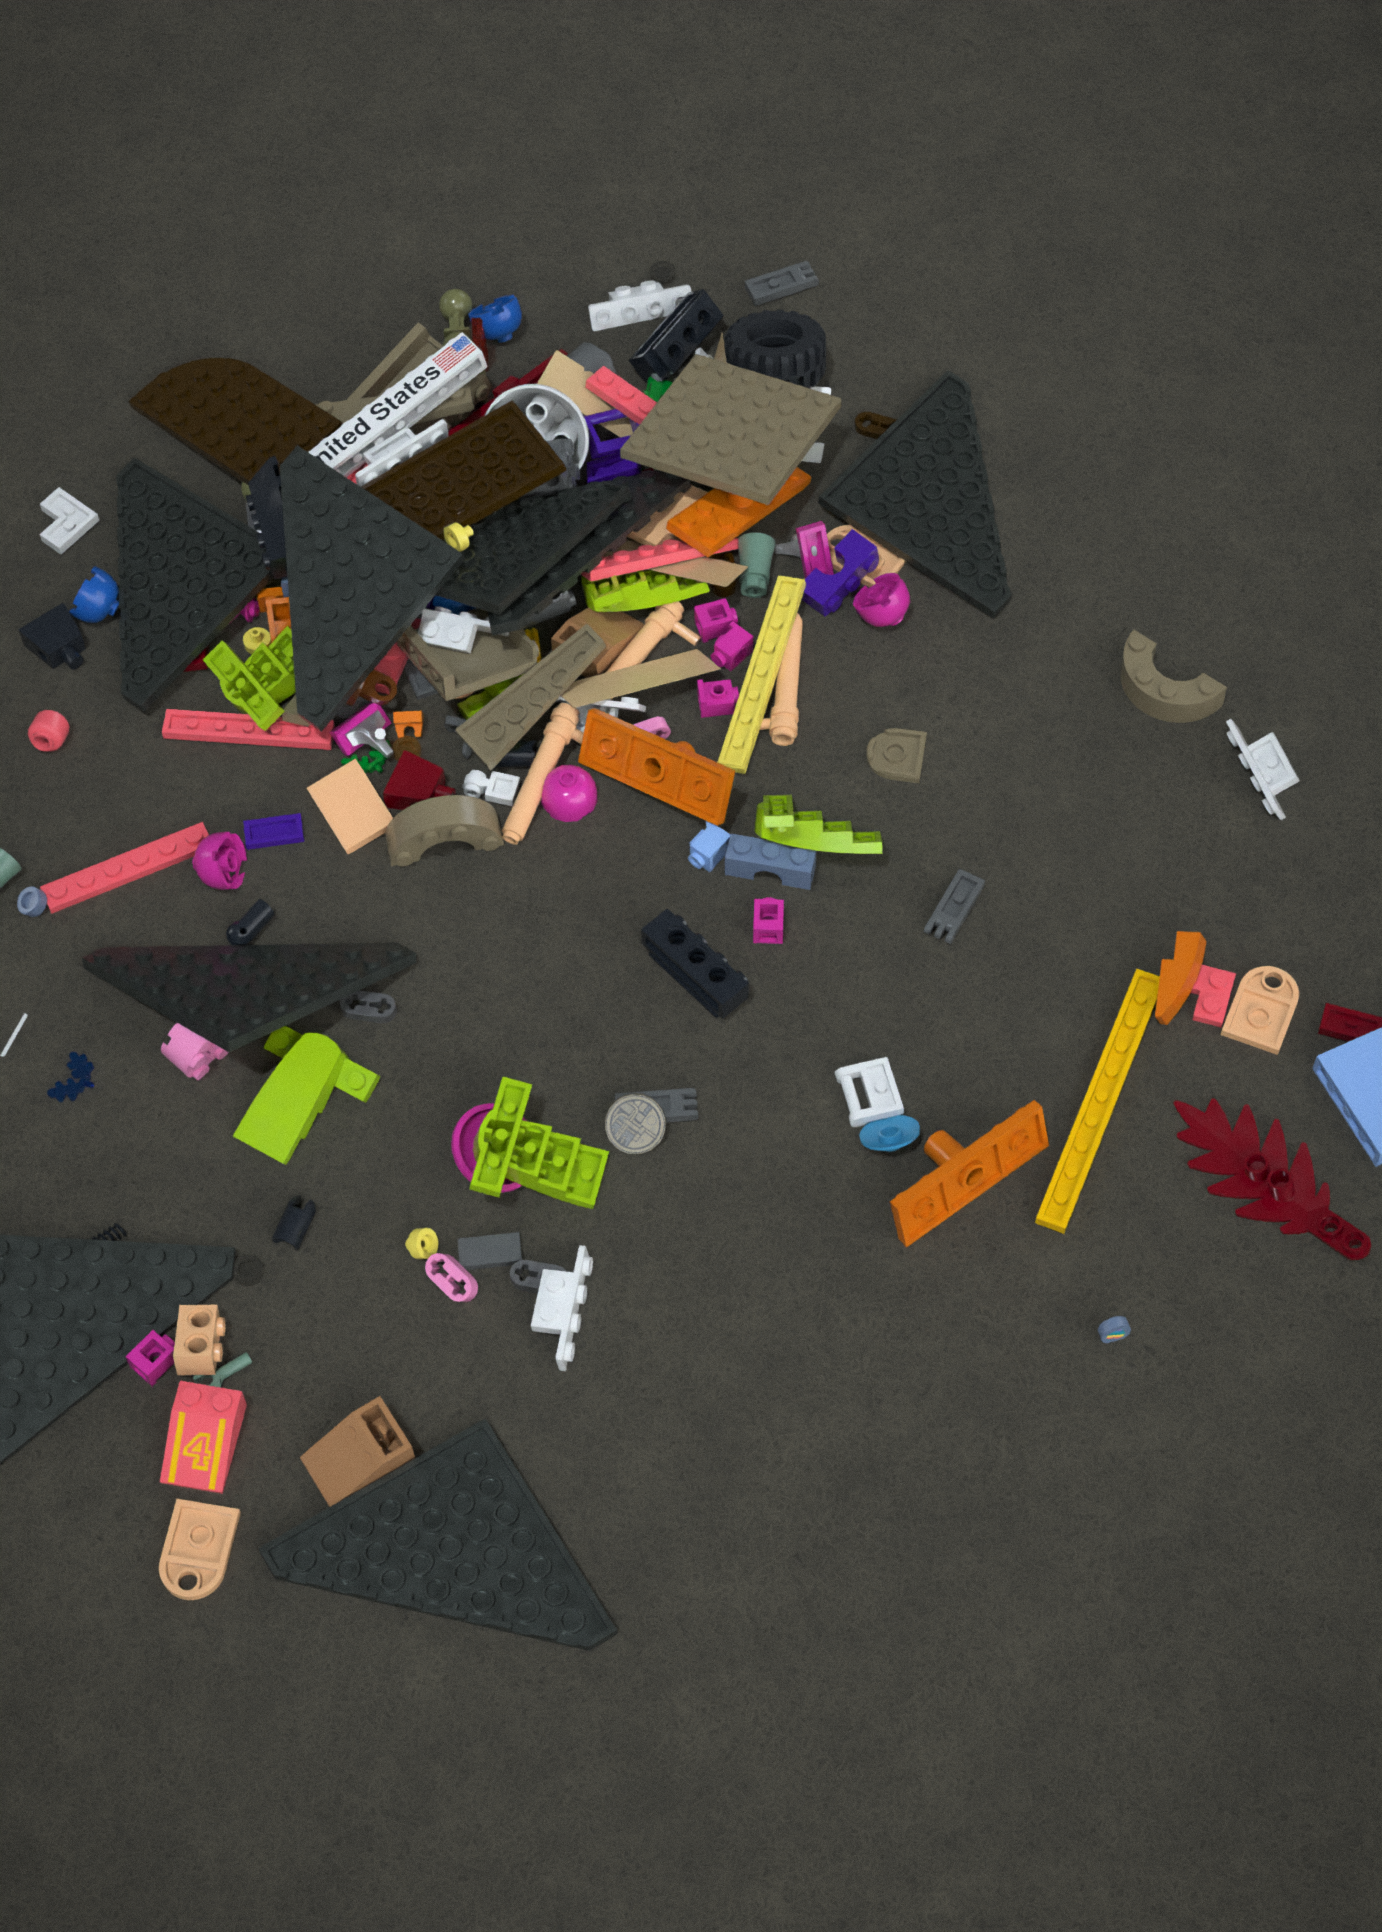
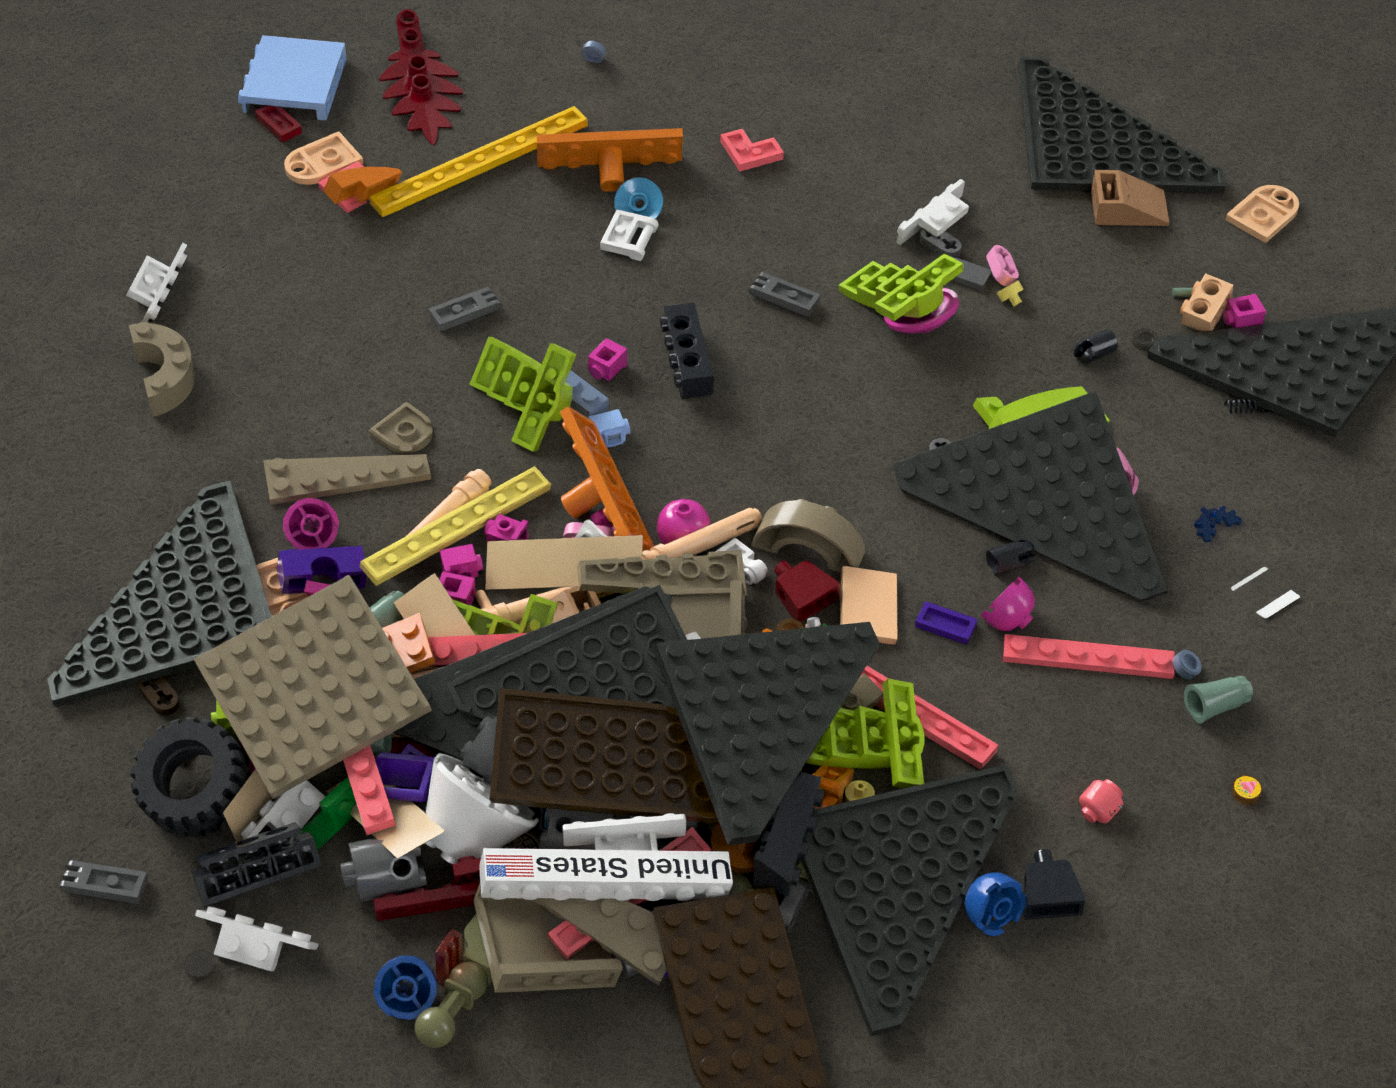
camera: 150 degrees left, 10 degrees down
(70, 522) = (969, 1013): white plate -> none
(202, 1436) = (1228, 259): coral slope -> none
(458, 536) = (638, 692): light yellow tile -> none
(635, 1123) = (811, 284): tile -> none
(827, 1279) = (749, 154): none -> coral plate
(923, 670) = (320, 477): none -> dark tan wing

